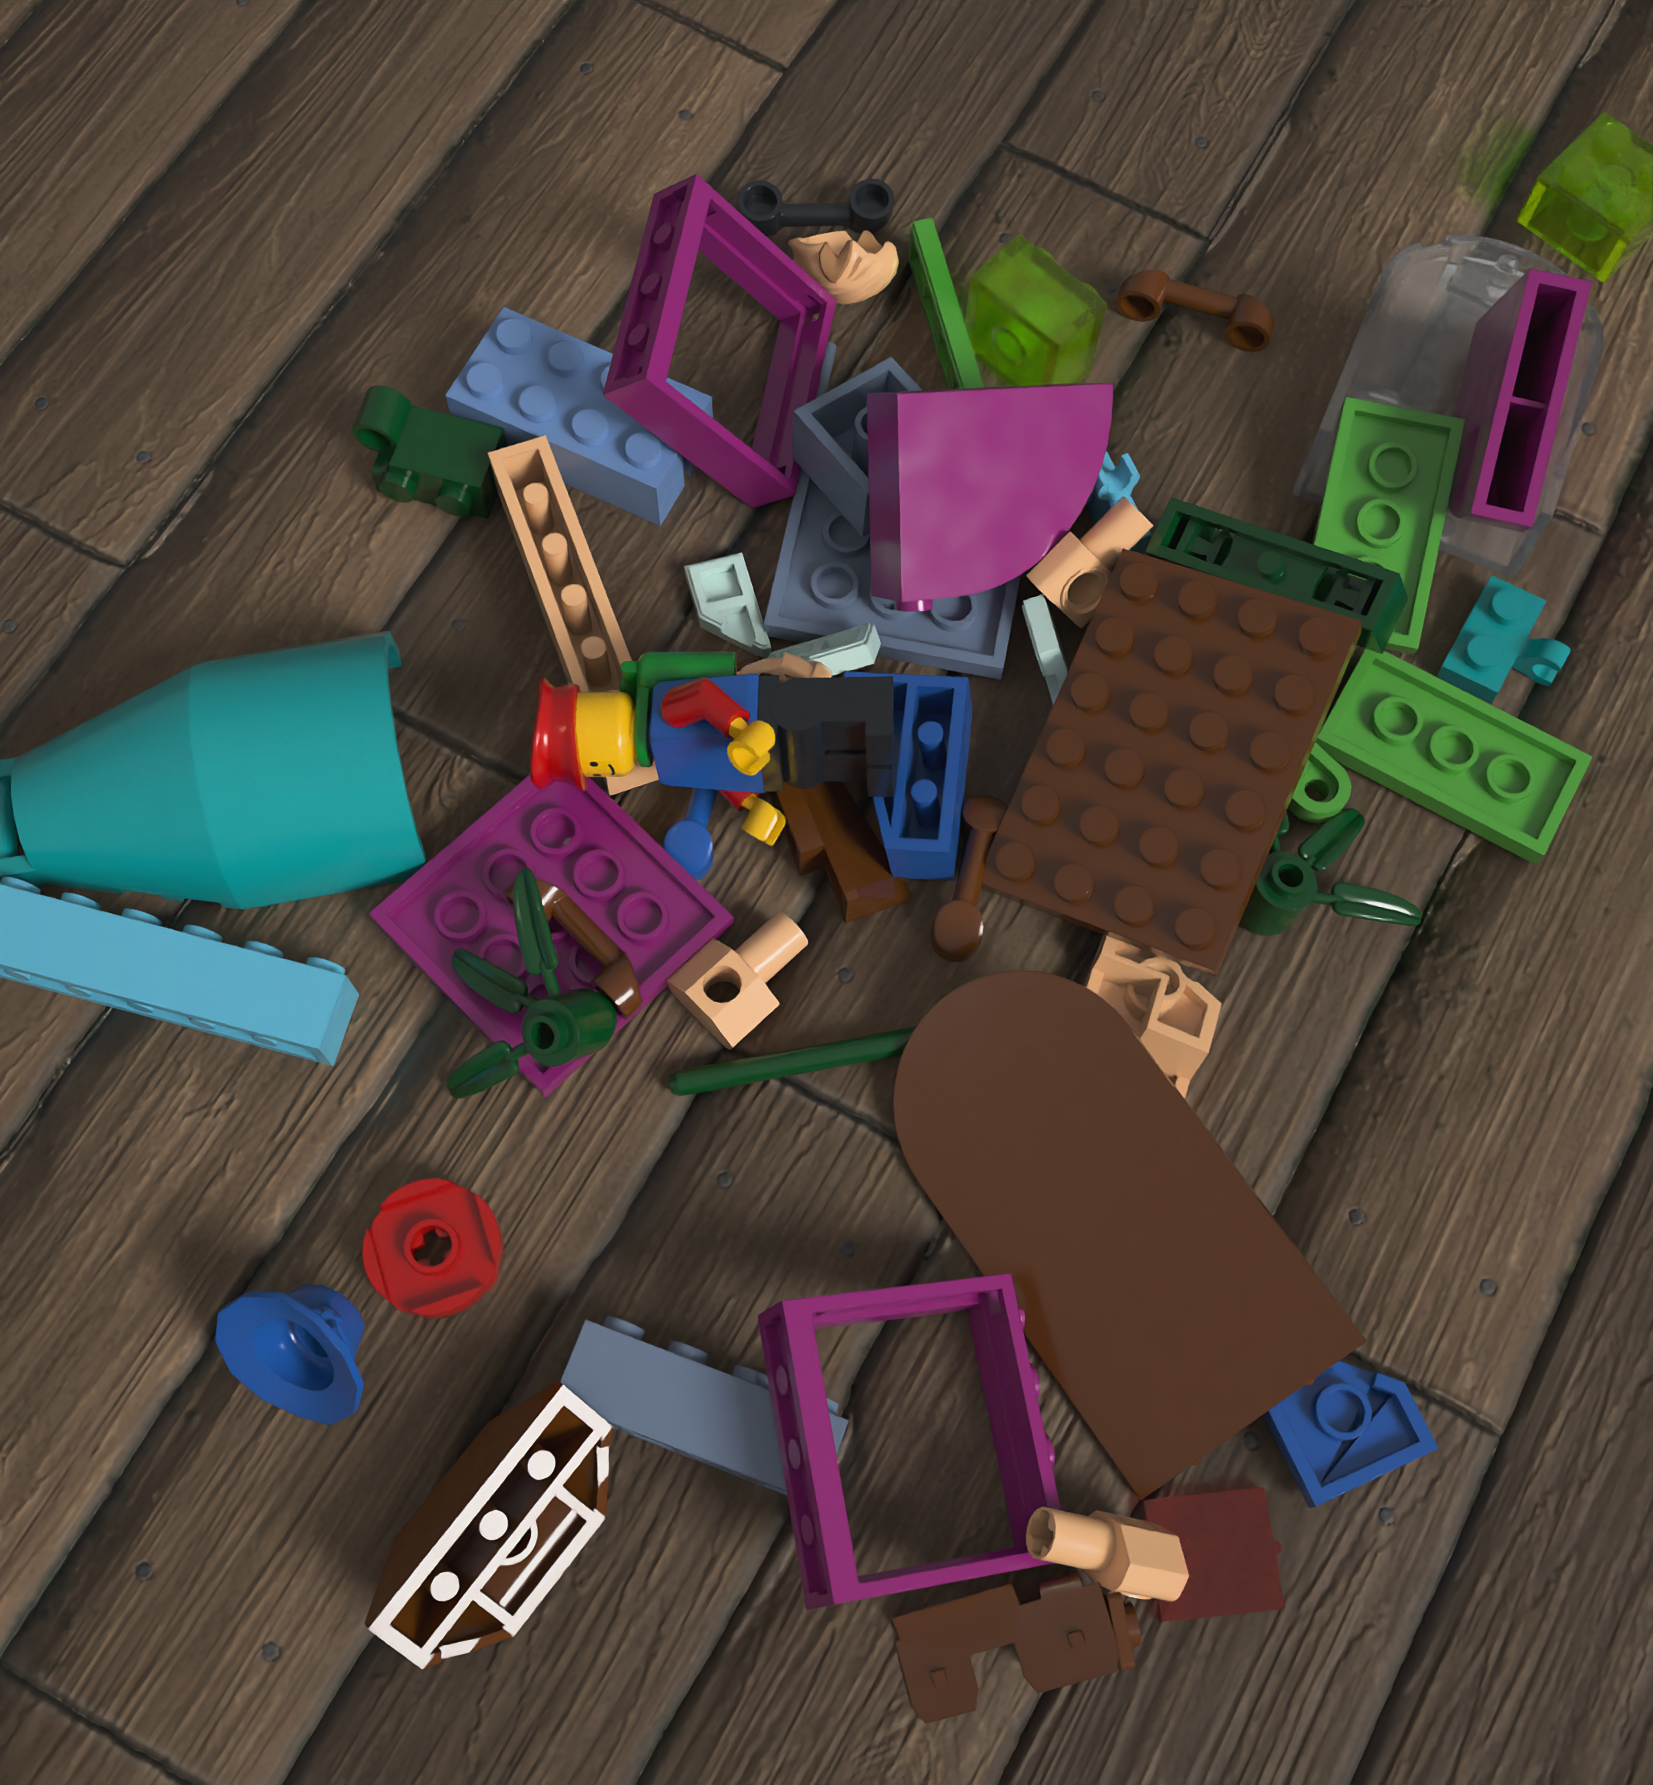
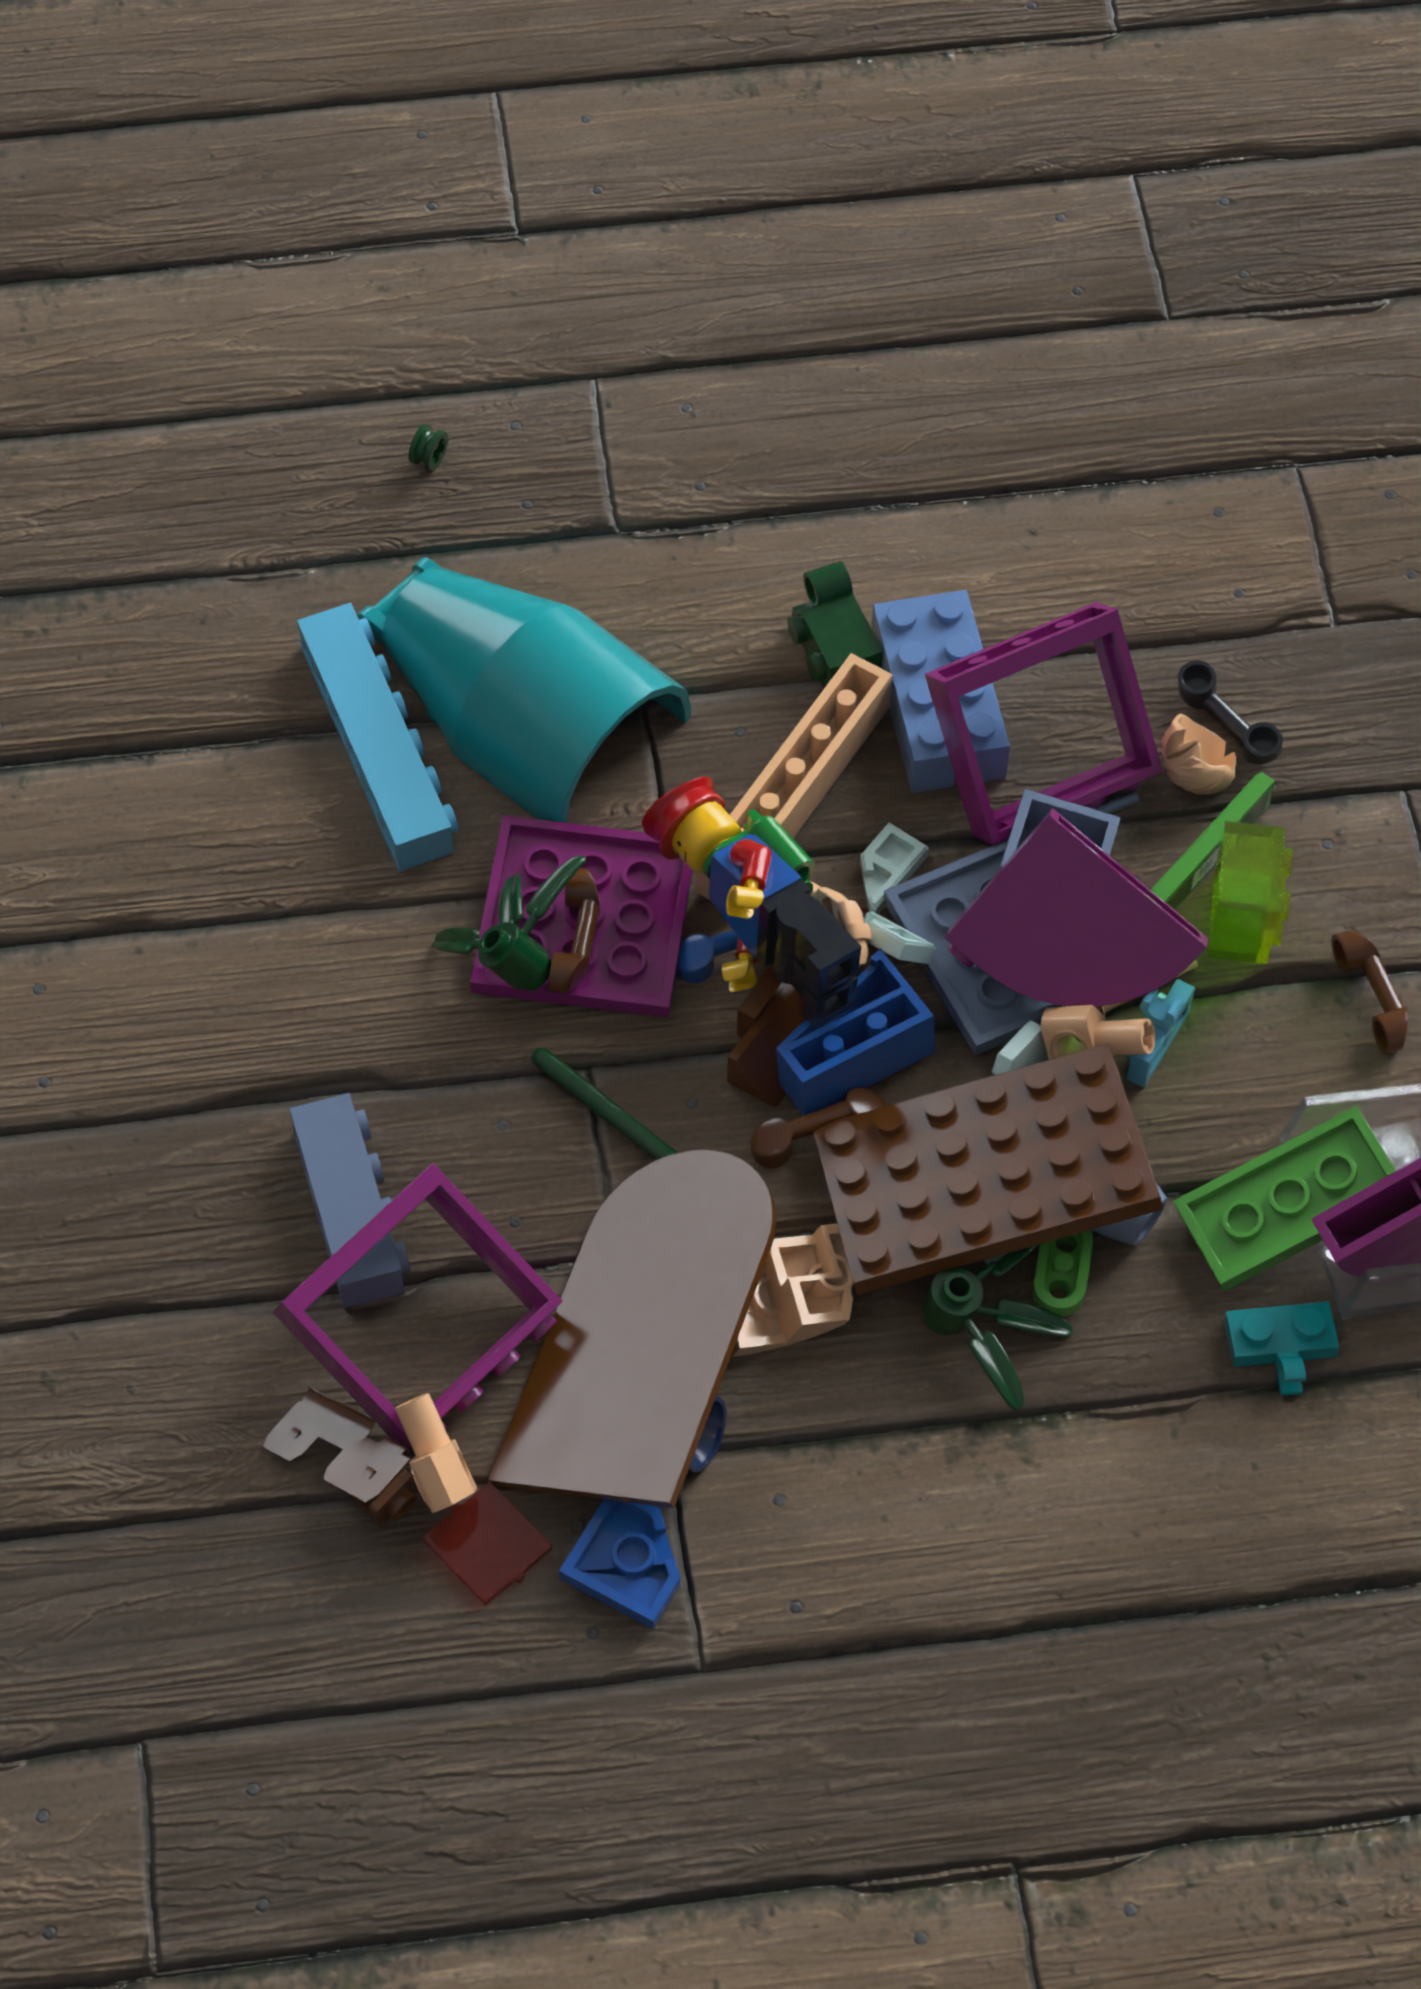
camera: 55 degrees right, 10 degrees down
(295, 1350) = (216, 961): blue hat -> none
(399, 1230) = (331, 1022): red plate -> none
(495, 1530) = (195, 1138): reddish brown wedge -> none
(747, 969) = (640, 1040): light nougat piece -> none
(1281, 567) = (1180, 1152): dark green brick -> none
(1453, 754) = (1163, 1356): bright green plate -> none

